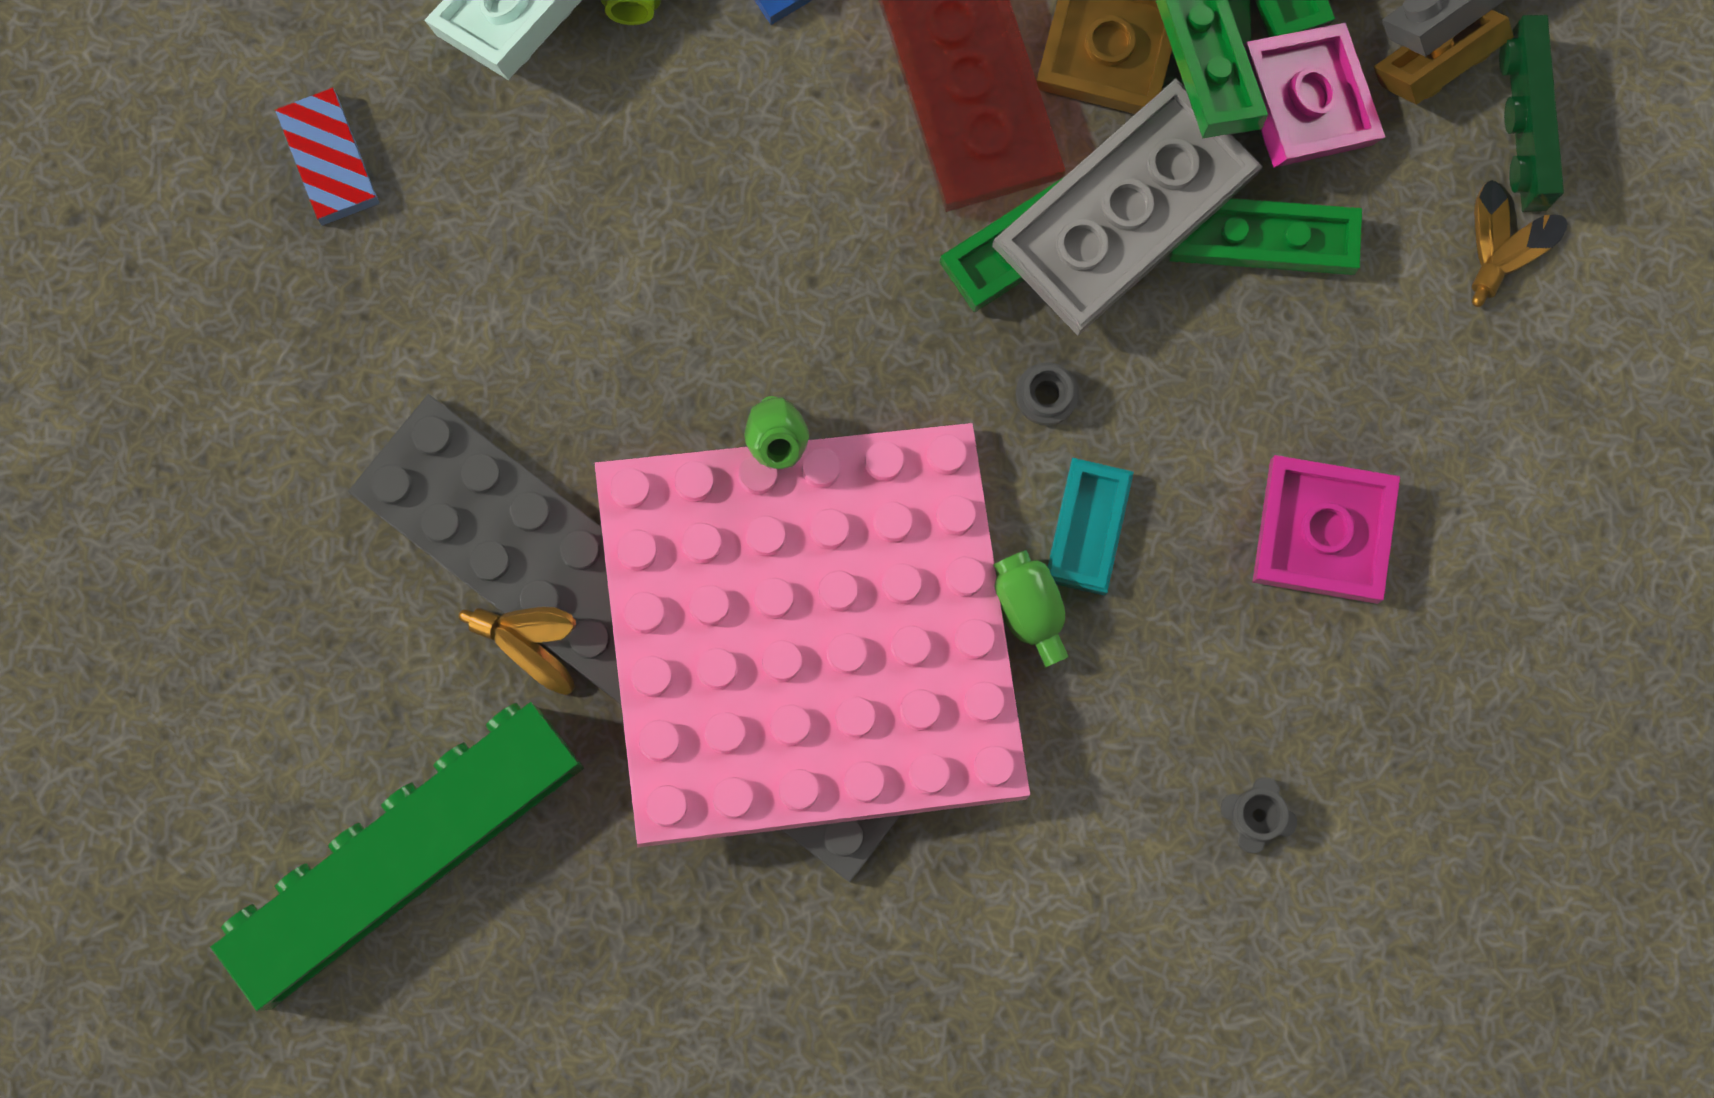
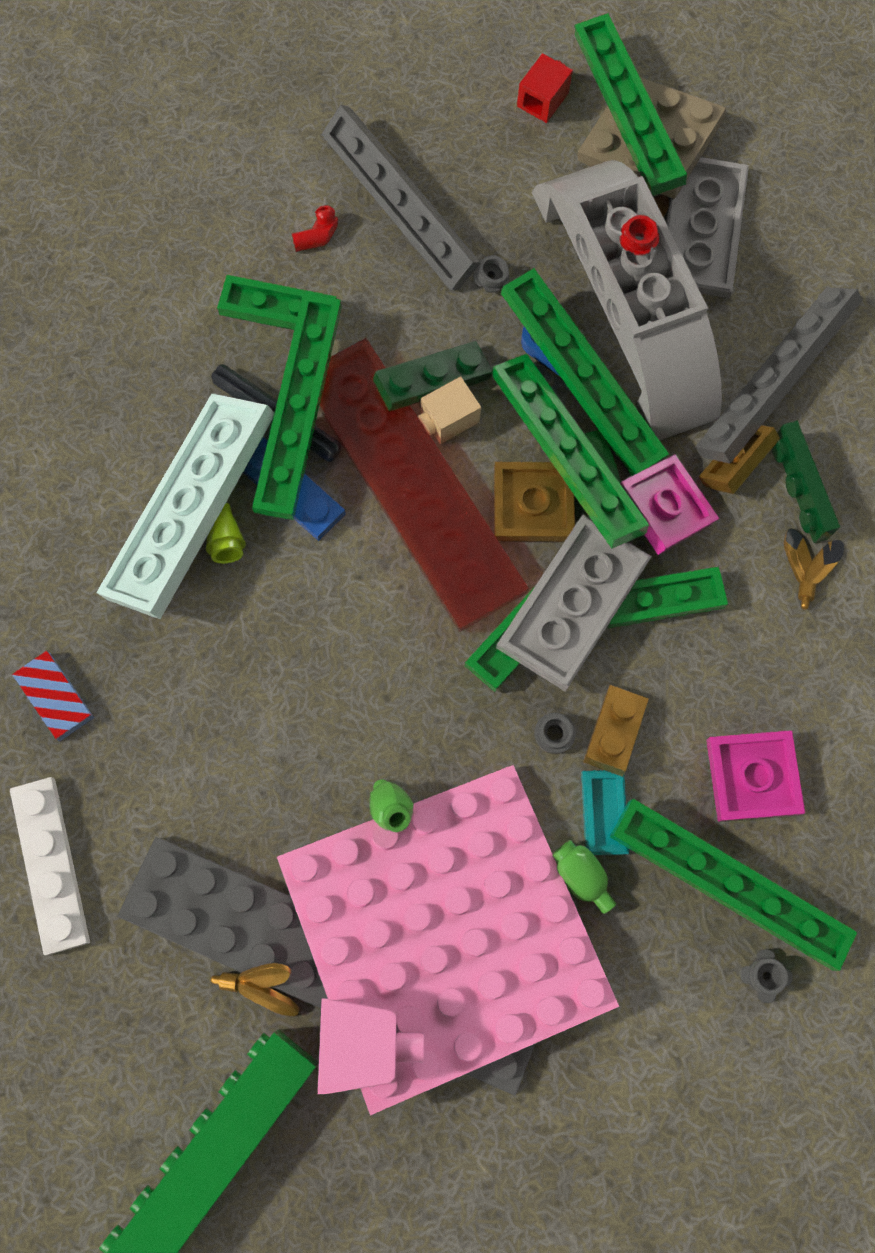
camera: 15 degrees left, 5 degrees down
(268, 397) = (49, 866): none -> white plate
(647, 743) = (361, 1046): none -> bright pink torso
(1138, 411) = (616, 730): none -> pearl gold plate
(1247, 673) = (734, 885): none -> green plate

